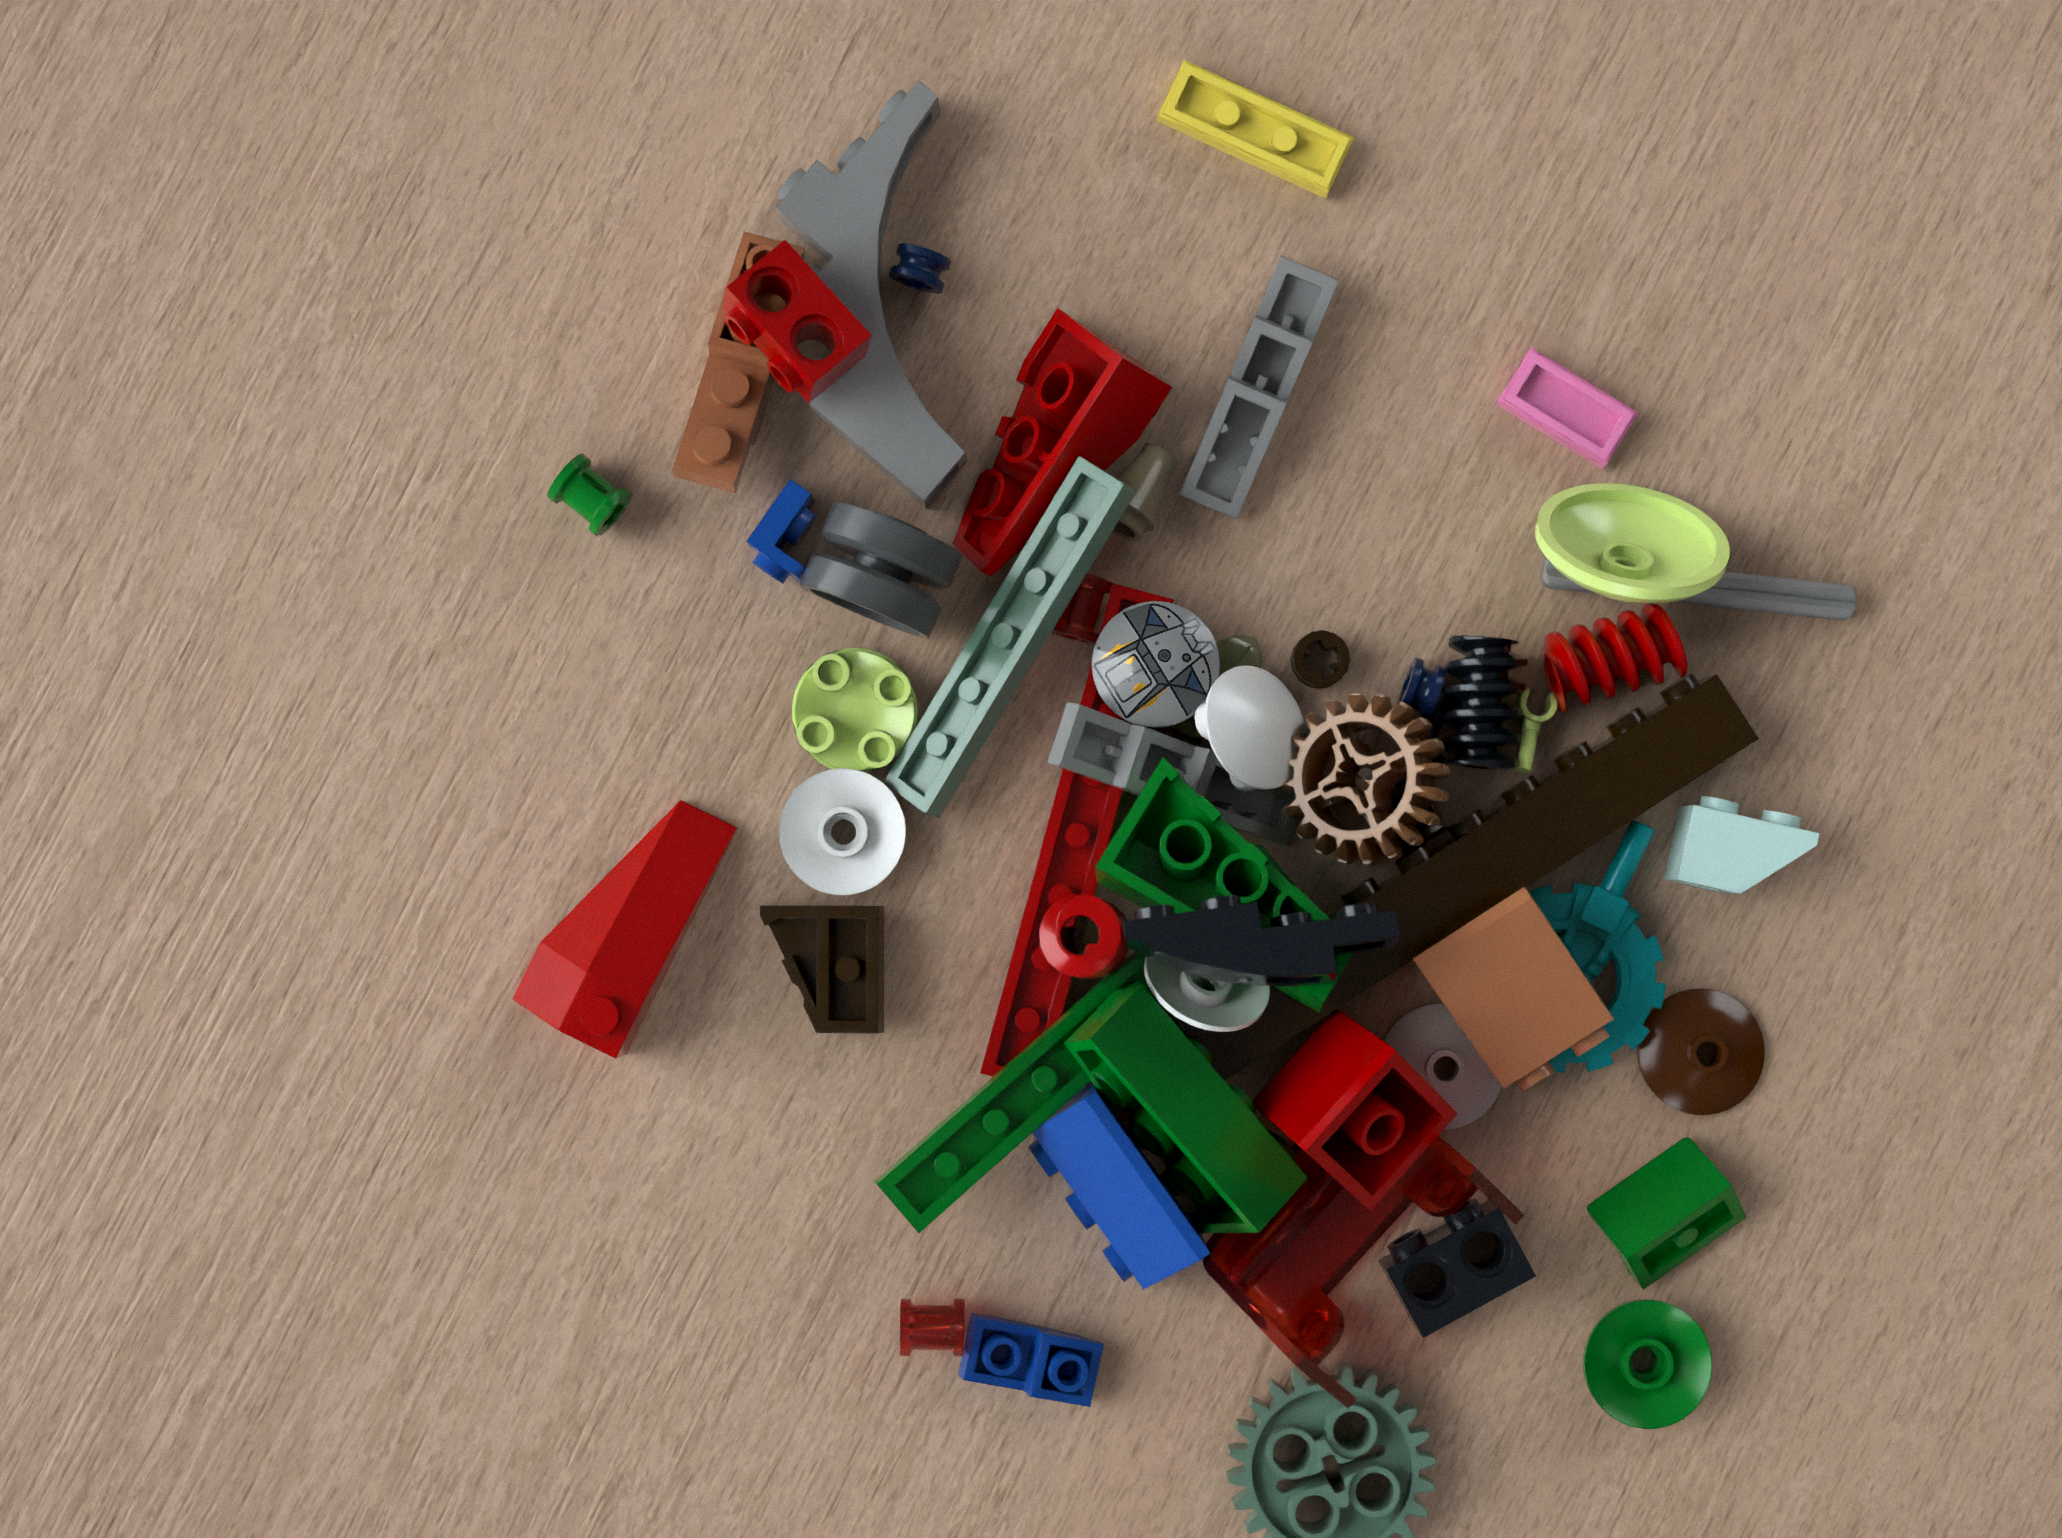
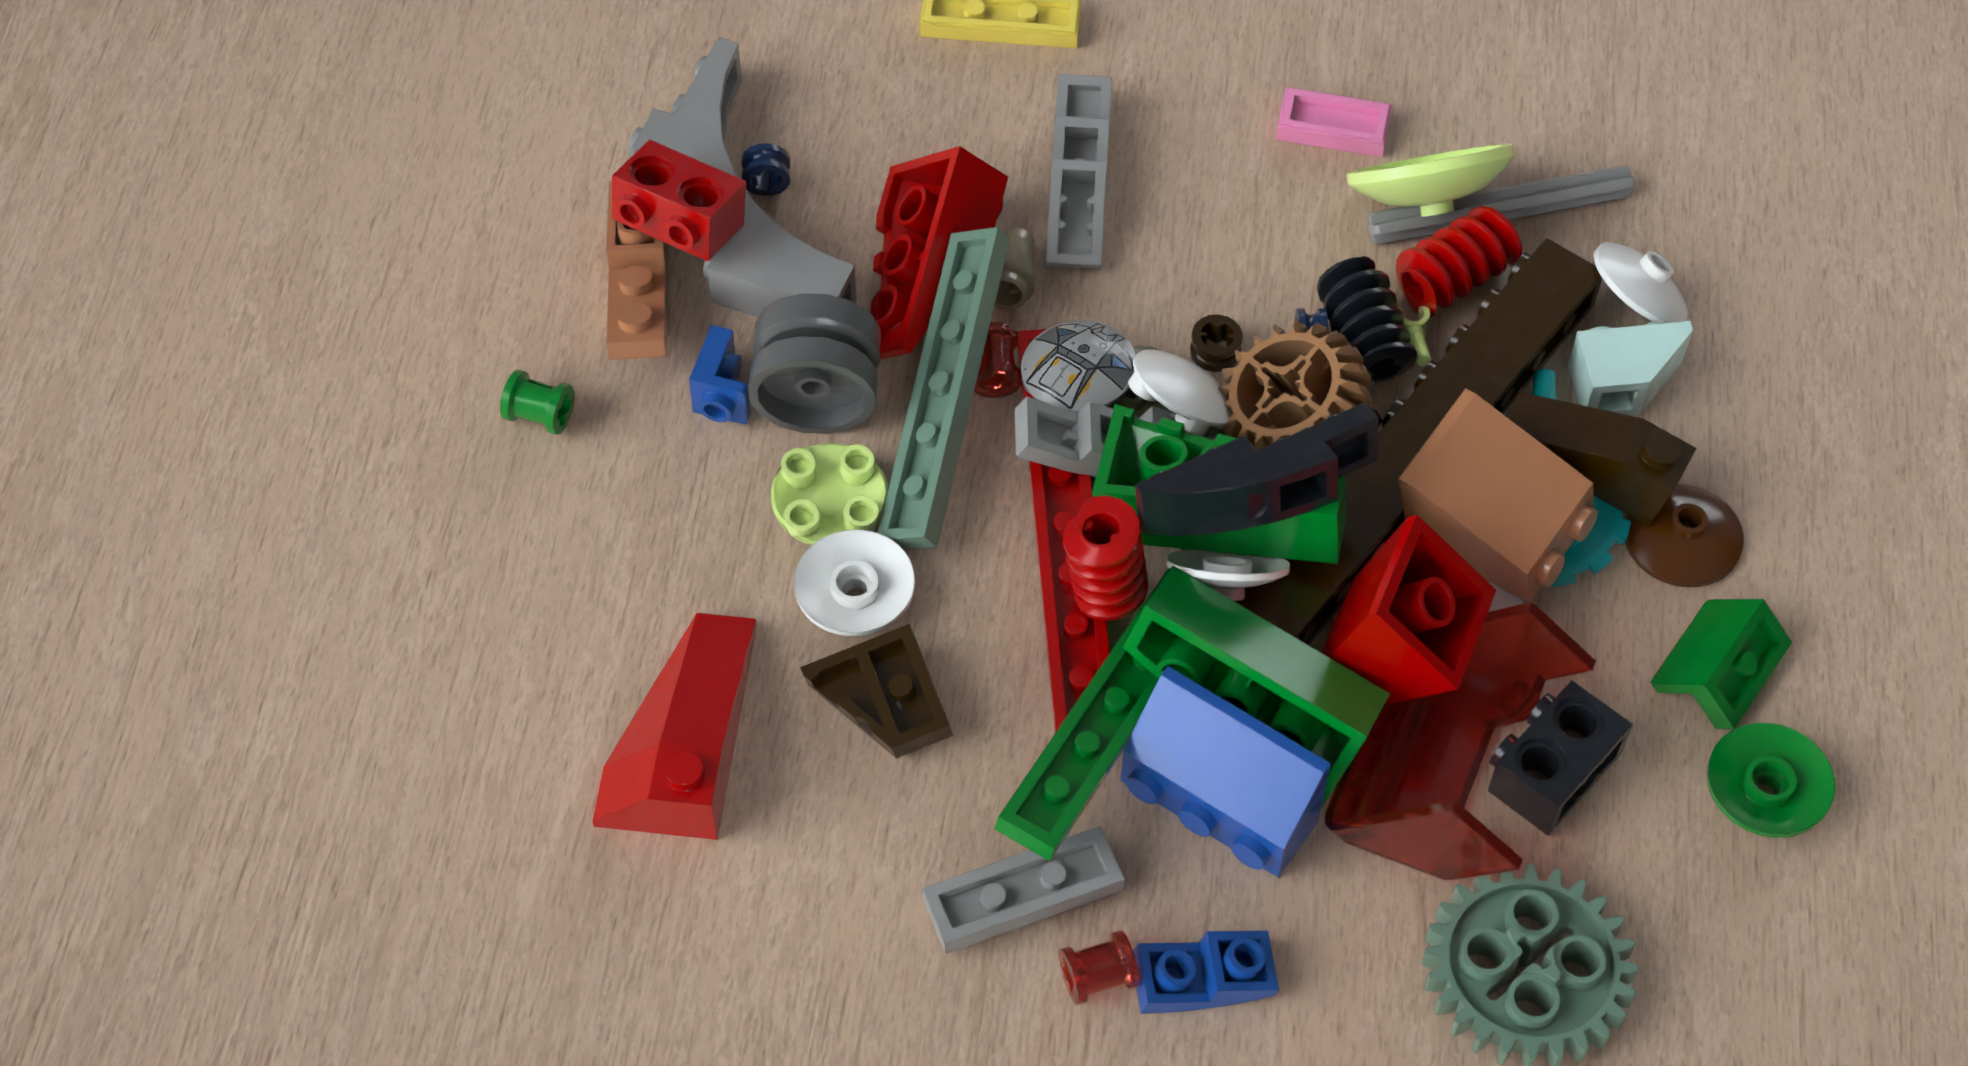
camera: 20 degrees left, 30 degrees down
(870, 1225) = (1022, 890): none -> light grey plate
(1645, 957) = (1621, 454): none -> dark brown slope
(1794, 755) = (1641, 282): none -> white dish

